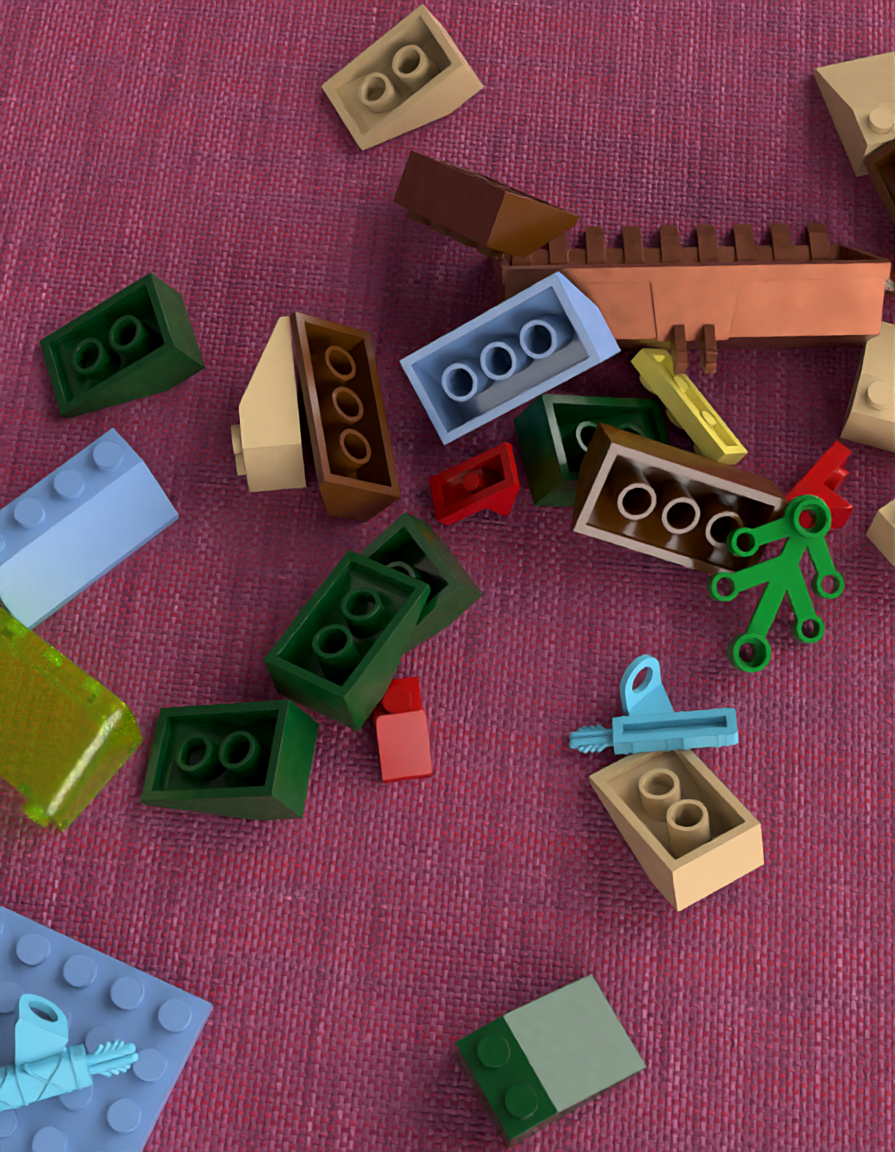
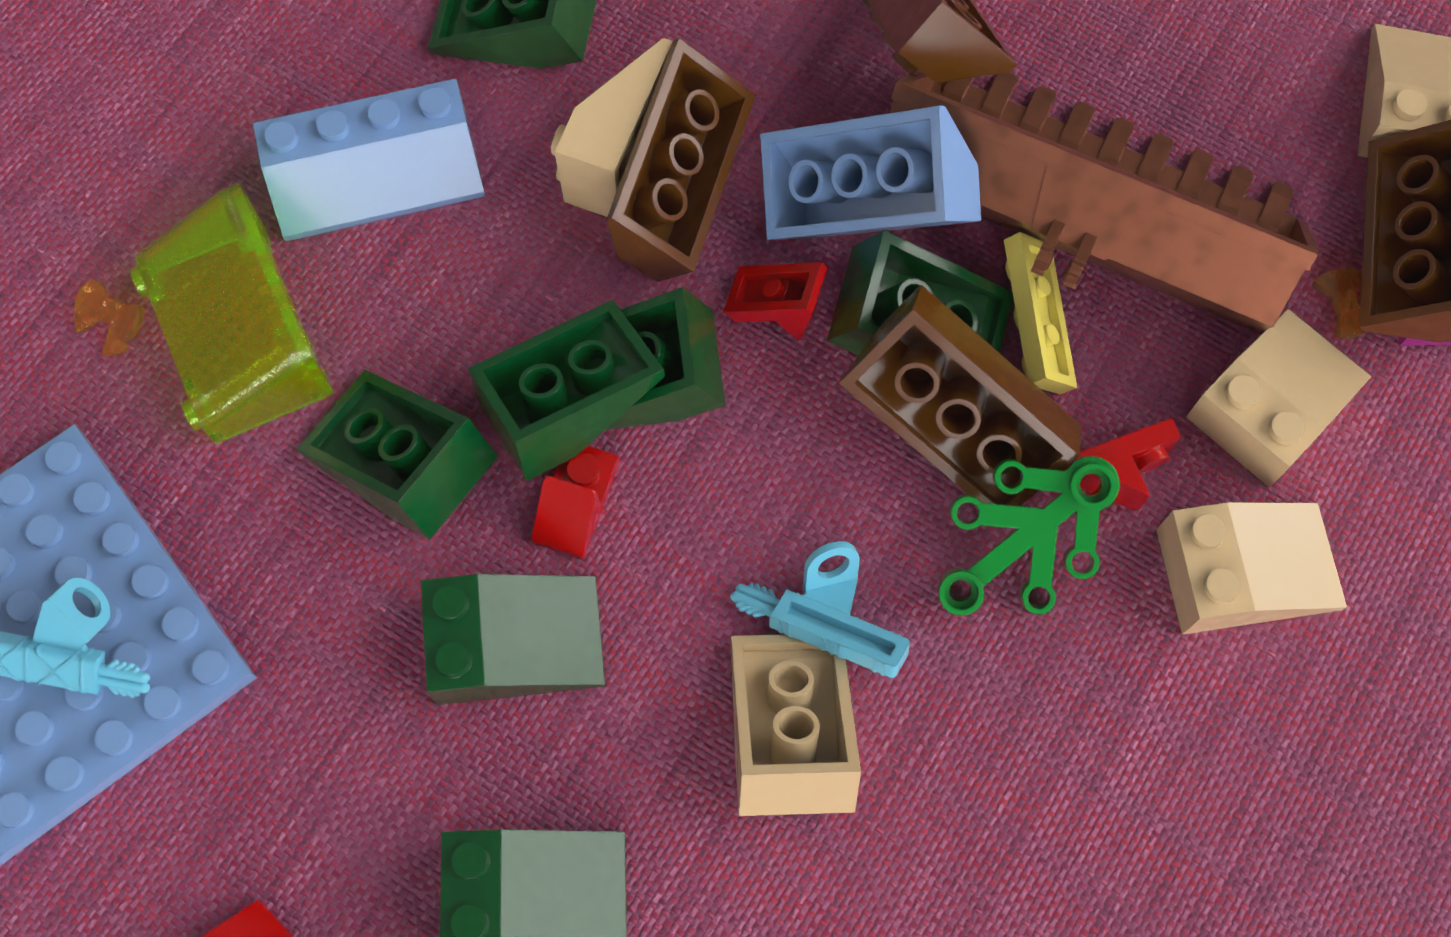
camera: 30 degrees right, 5 degrees up
(412, 864) = (510, 636): none -> slope

